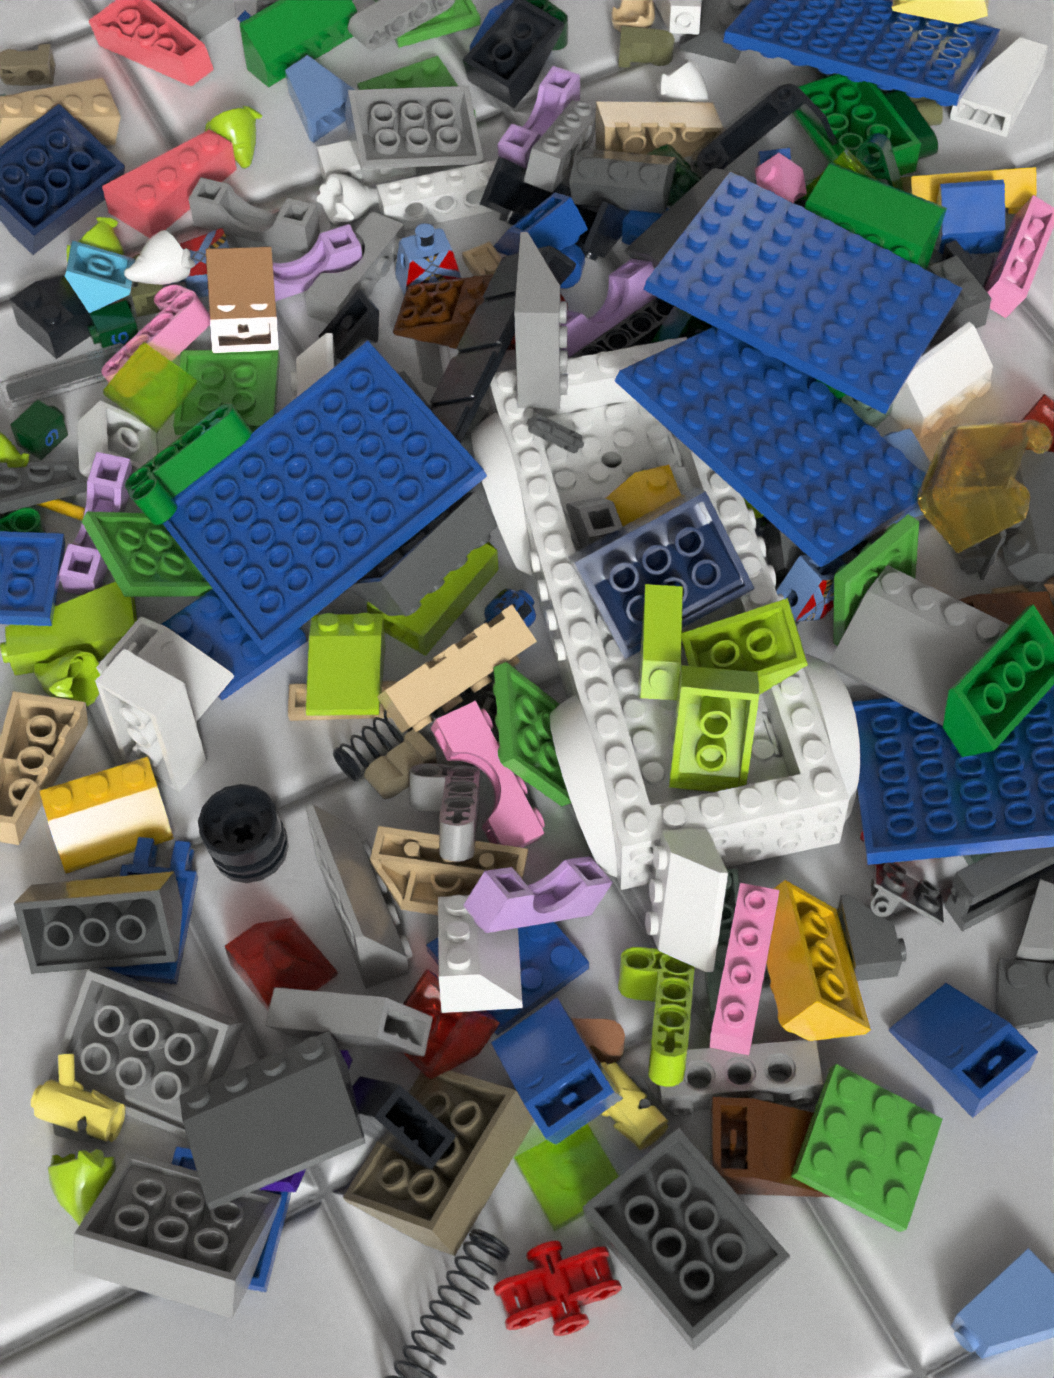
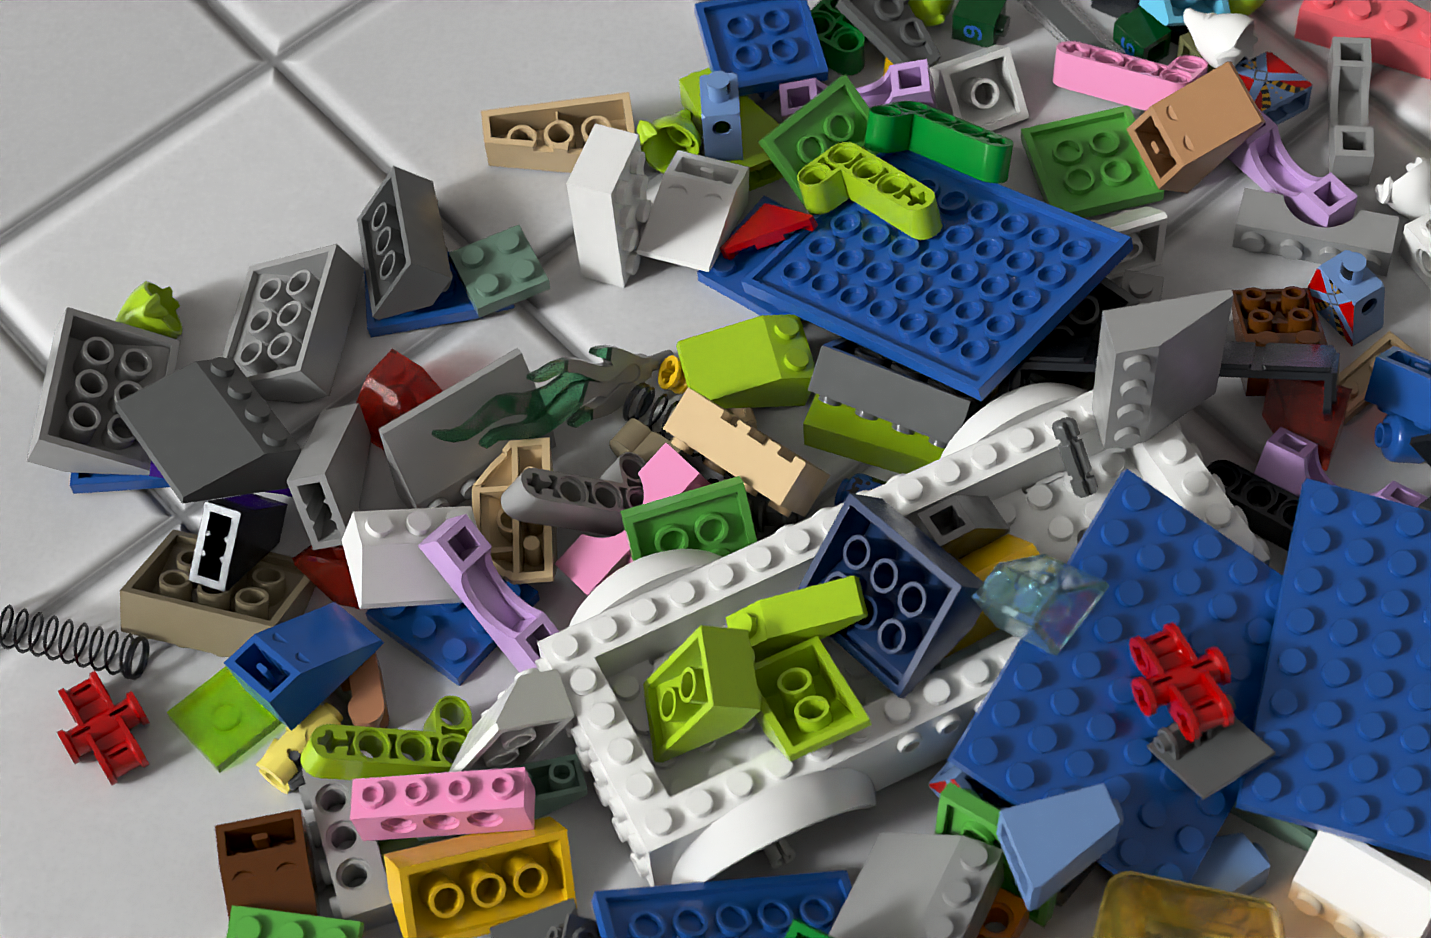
camera: 80 degrees right, 0 degrees up
(75, 1111) = (219, 292): light yellow piece -> none
(82, 618) = (721, 103): none -> medium blue torso
(105, 814) = (528, 197): yellow slope -> none
(150, 387) = (1054, 87): clear neon green tile -> none
(165, 840) = (499, 270): none -> sand green plate
(208, 618) = (767, 228): none -> red tile
(216, 518) = (858, 175): none -> lime beam
(243, 833) = (524, 317): black wheel -> none
(316, 731) = (671, 375): none -> yellow bush
(336, 798) = (562, 397): none -> clear green piece
(355, 320) = (1224, 247): black slope -> none
(685, 1237) = (149, 814): dark grey slope -> none
(720, 452) = (1039, 599): none -> clear light blue slope
(806, 394) = (1181, 681): none -> red axle
(846, 405) = (1214, 758): none -> dark grey hinge
(914, 510) = (1057, 839): none -> medium blue slope

